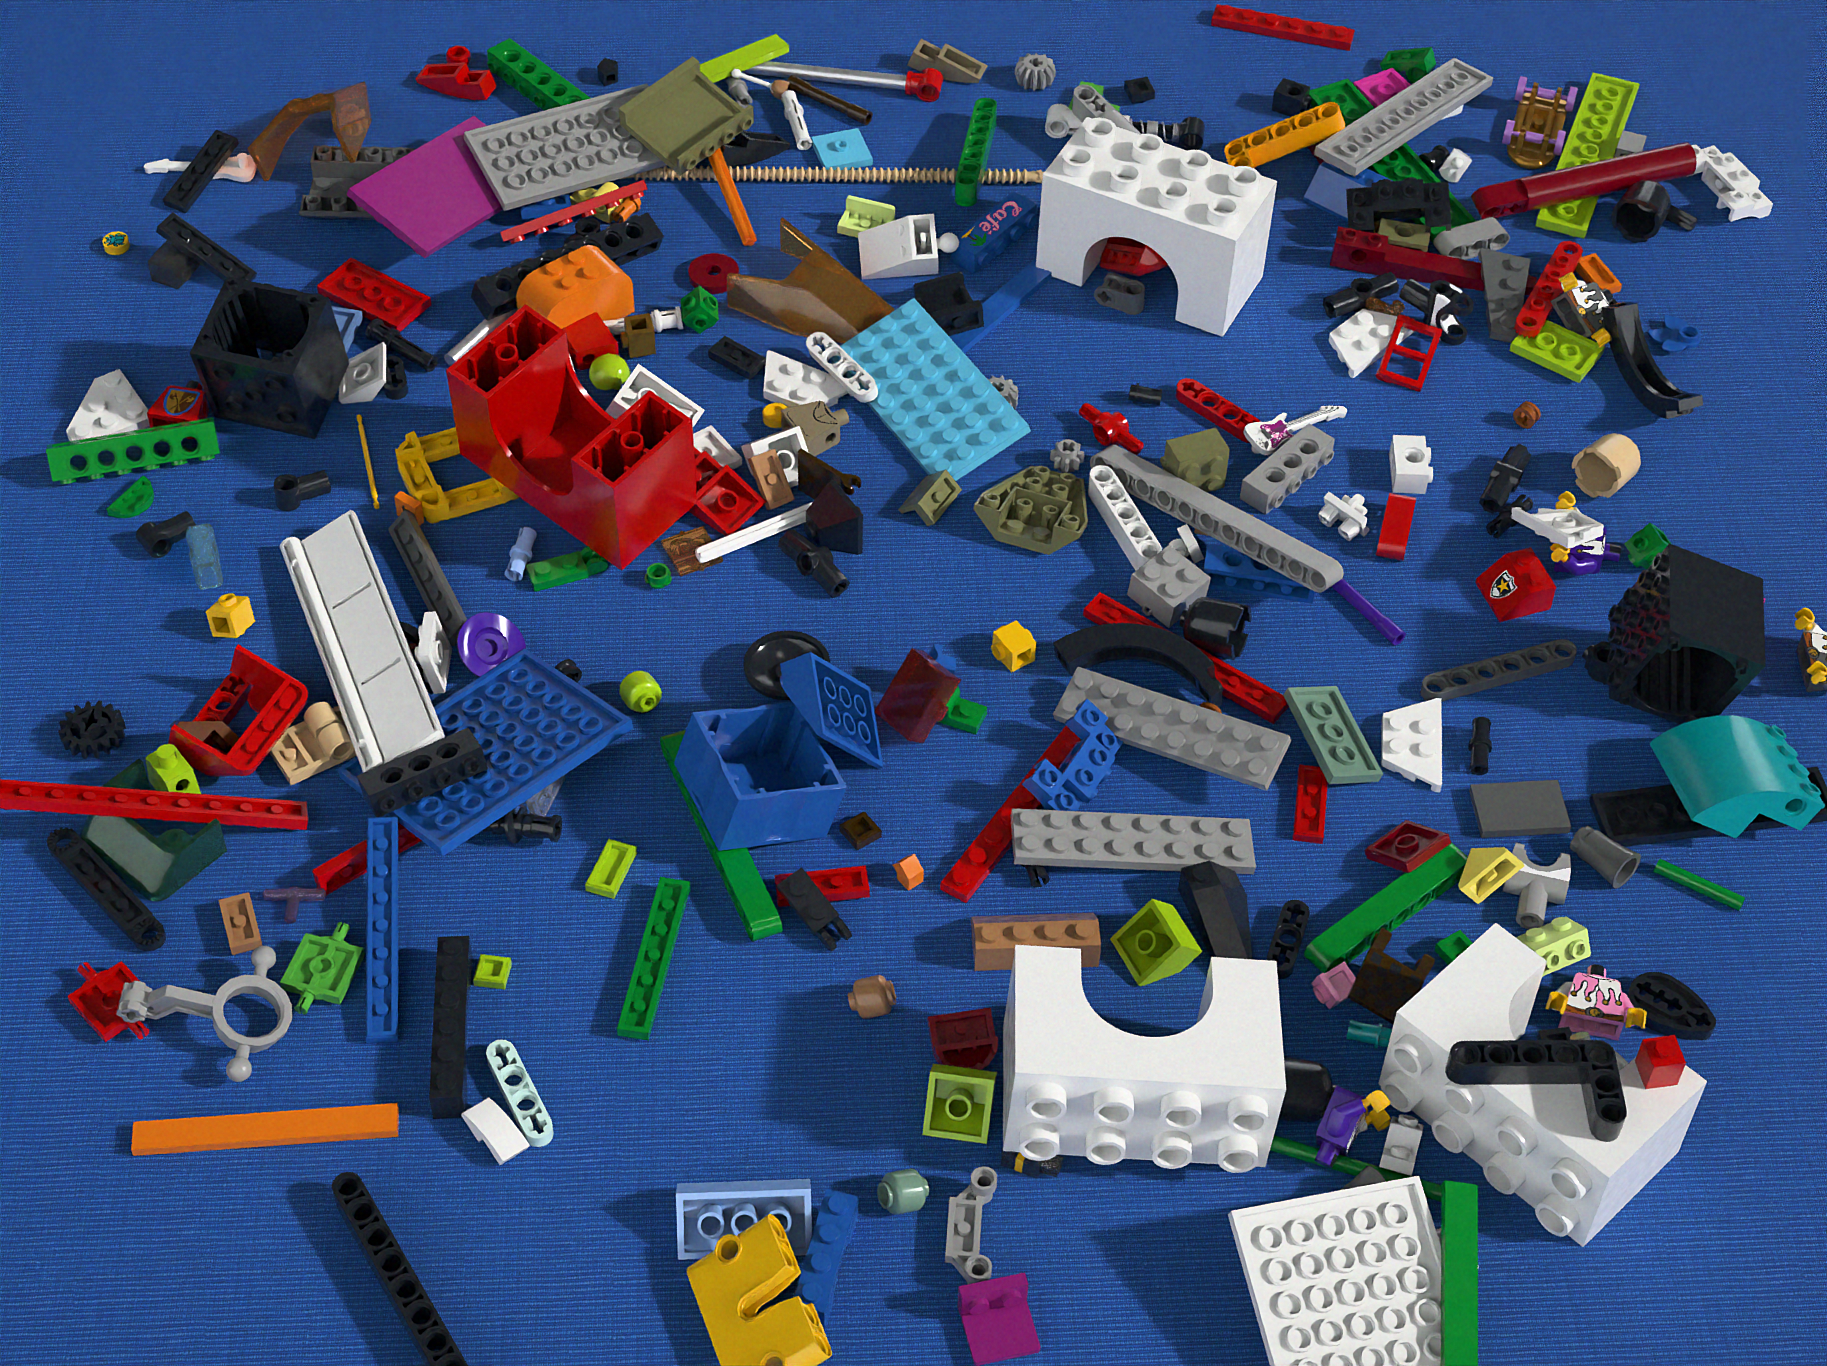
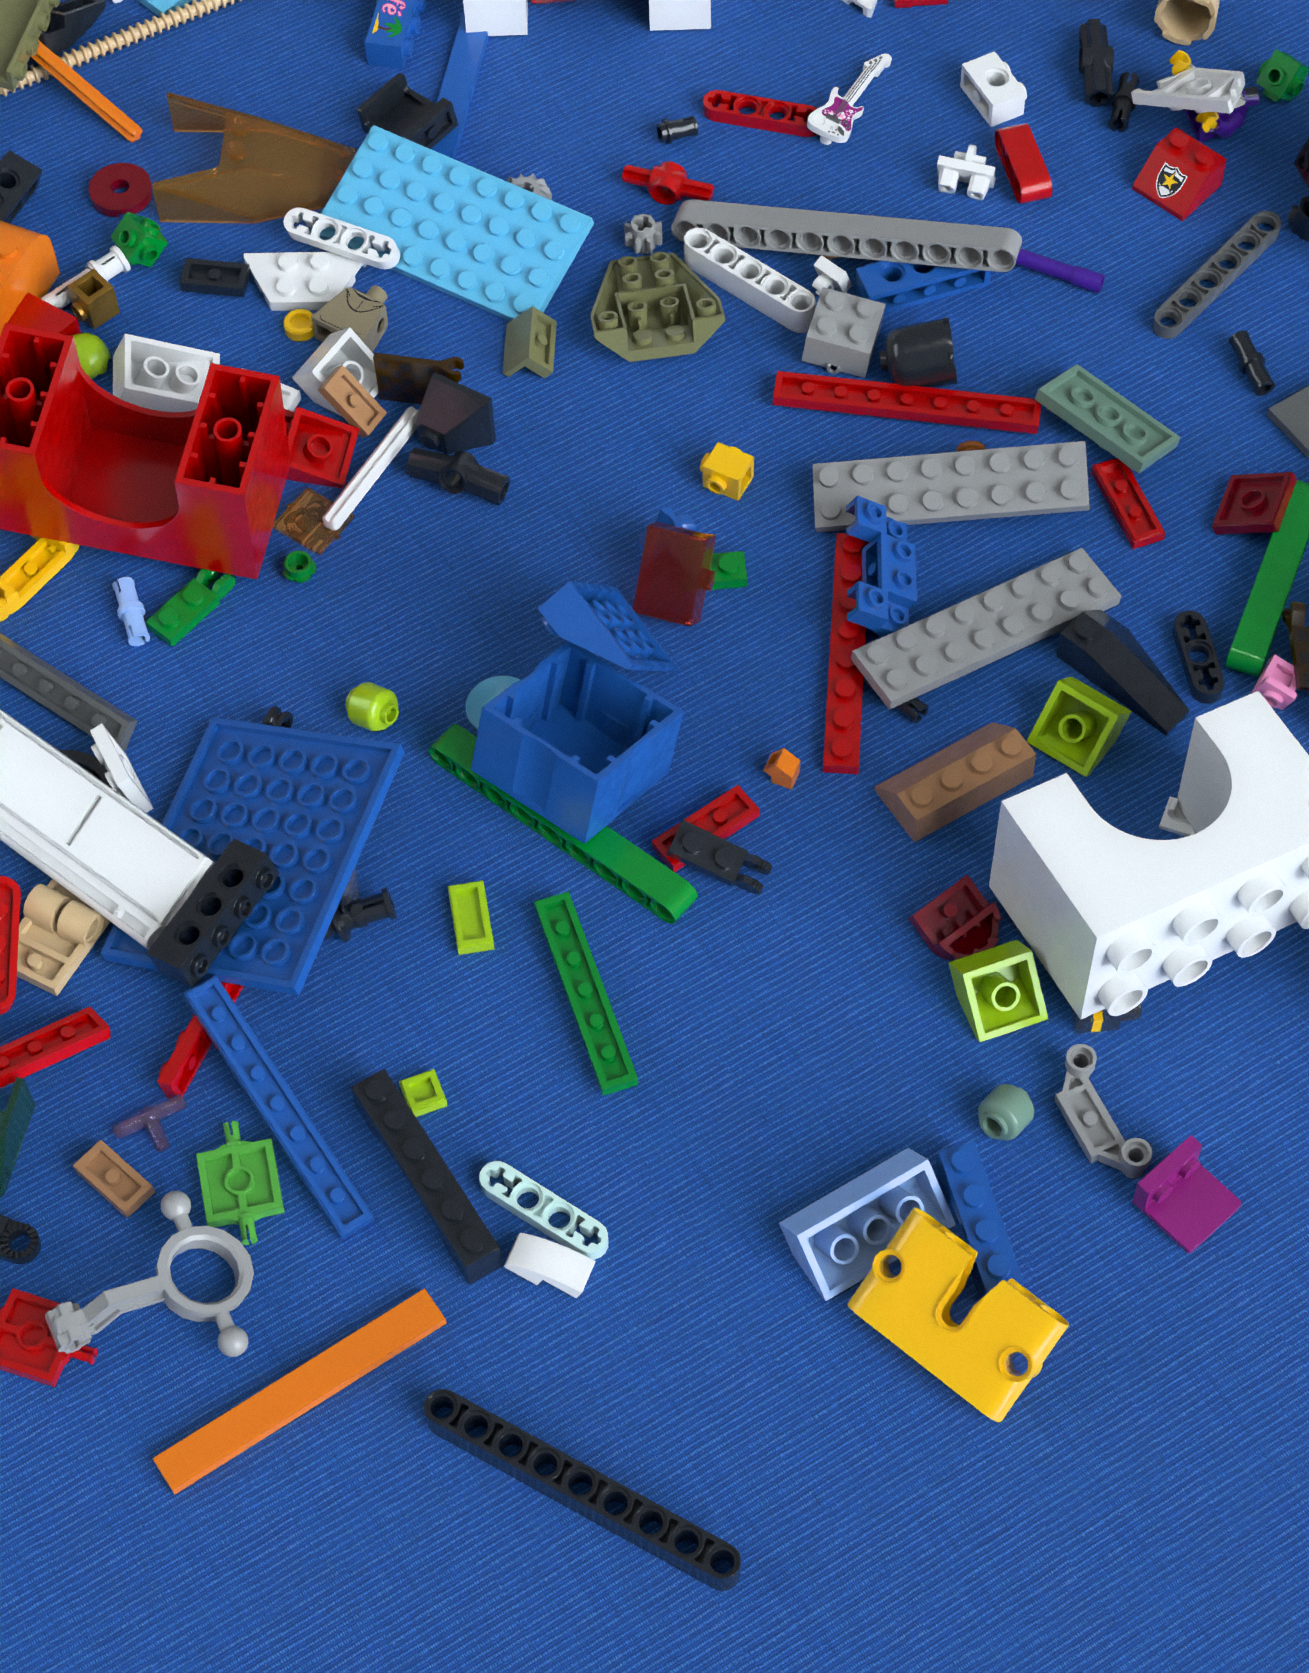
camera: 25 degrees left, 10 degrees up
(487, 642) = (173, 730): dark purple hat -> none
(765, 655) = (504, 591): black dish -> none
(860, 830) = (702, 748): dark brown tile -> none
(864, 215) = (251, 55): yellowish green bracket -> none
(872, 996) = (838, 922): medium nougat head -> none
(896, 250) = (308, 79): white slope -> none
(1123, 294) = (582, 24): dark grey piece -> none
(1143, 643) = (867, 407): black arch -> none
(1198, 459) = (788, 177): olive brick -> none
(1287, 469) = (876, 148): light grey brick -> none
(1414, 742) = (1185, 390): white wing -> none

